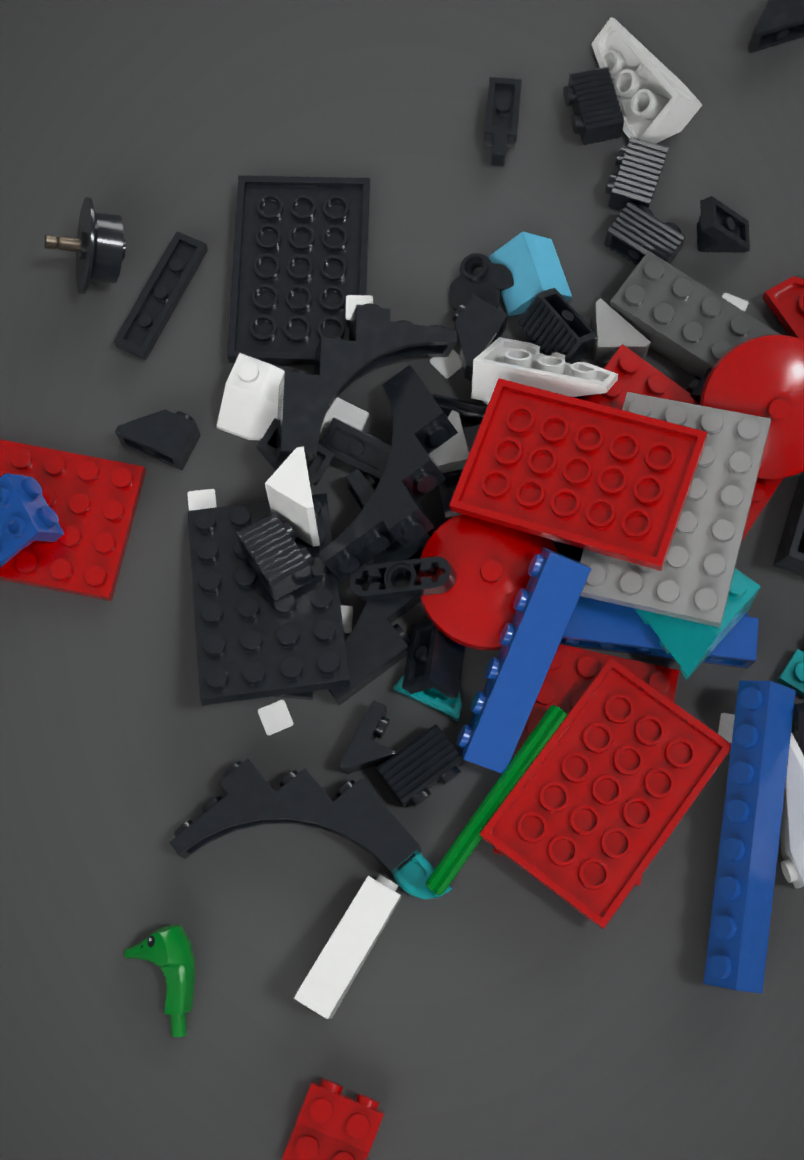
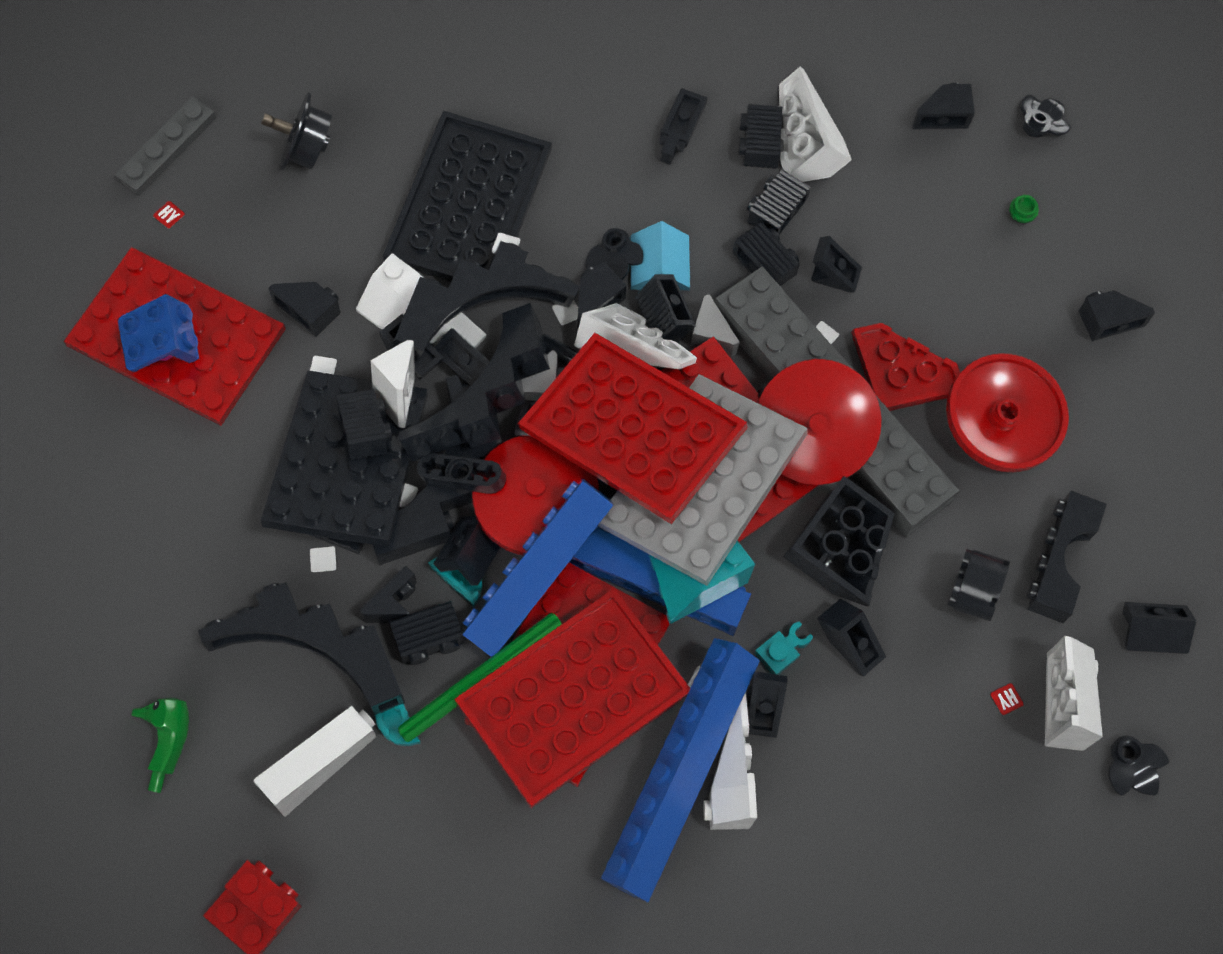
camera: 10 degrees right, 5 degrees down
(161, 295) = (346, 190): black plate -> none

